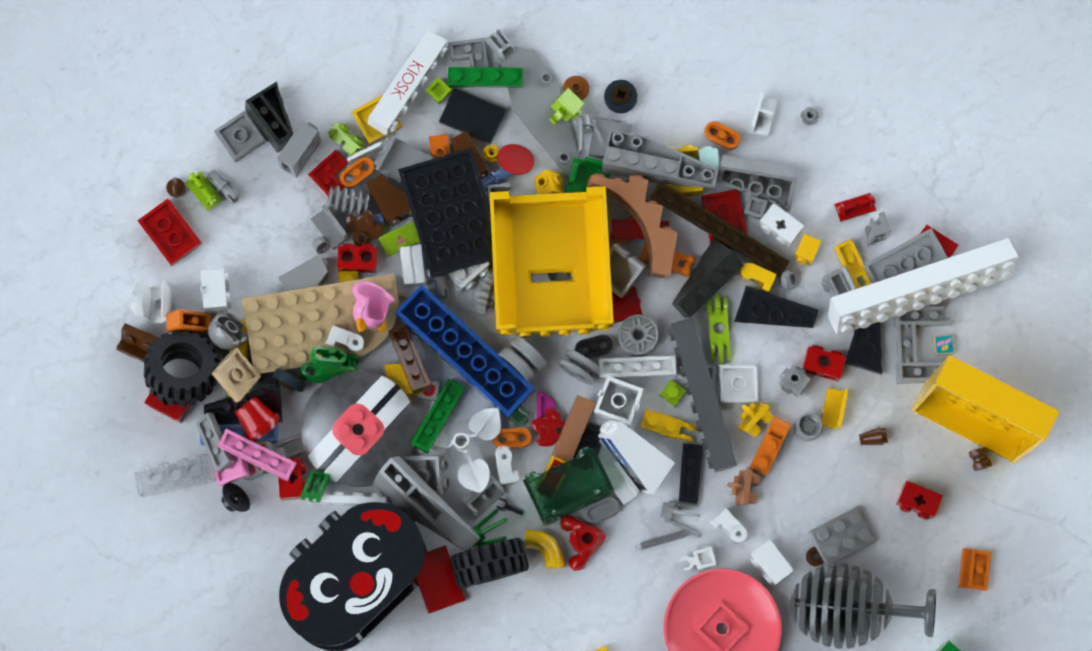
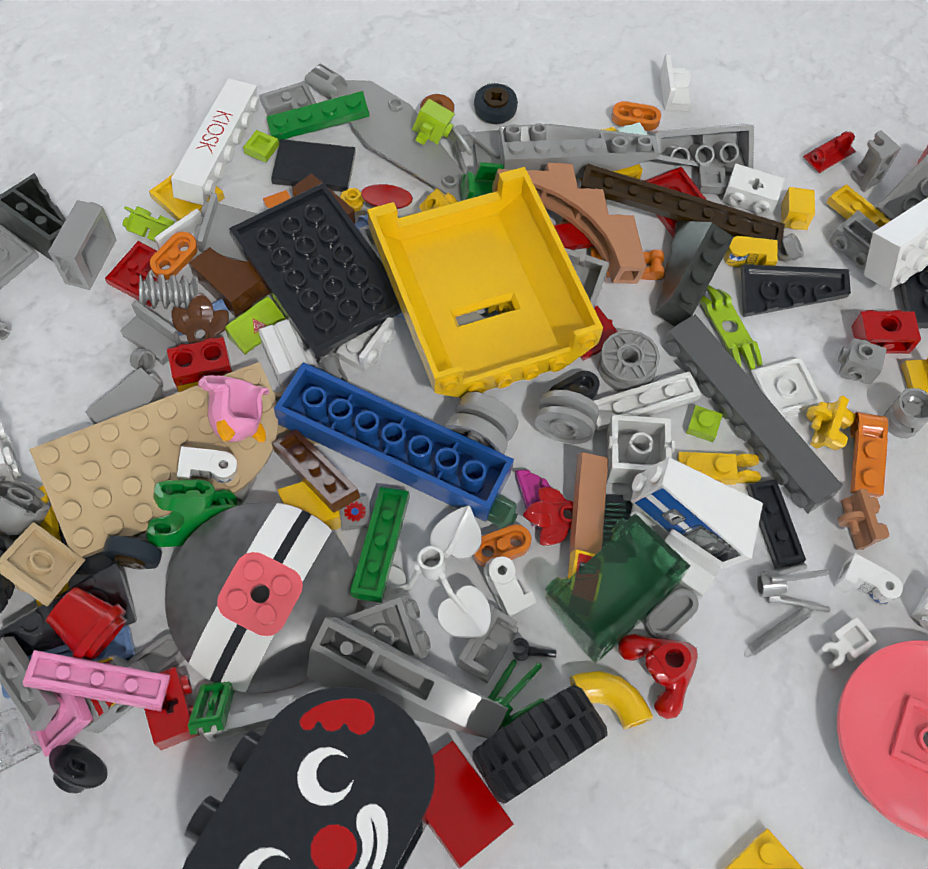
camera: 20 degrees left, 15 degrees down
(485, 294) = (400, 356): light grey gear -> none
(809, 111) = (729, 77): light grey plate -> none

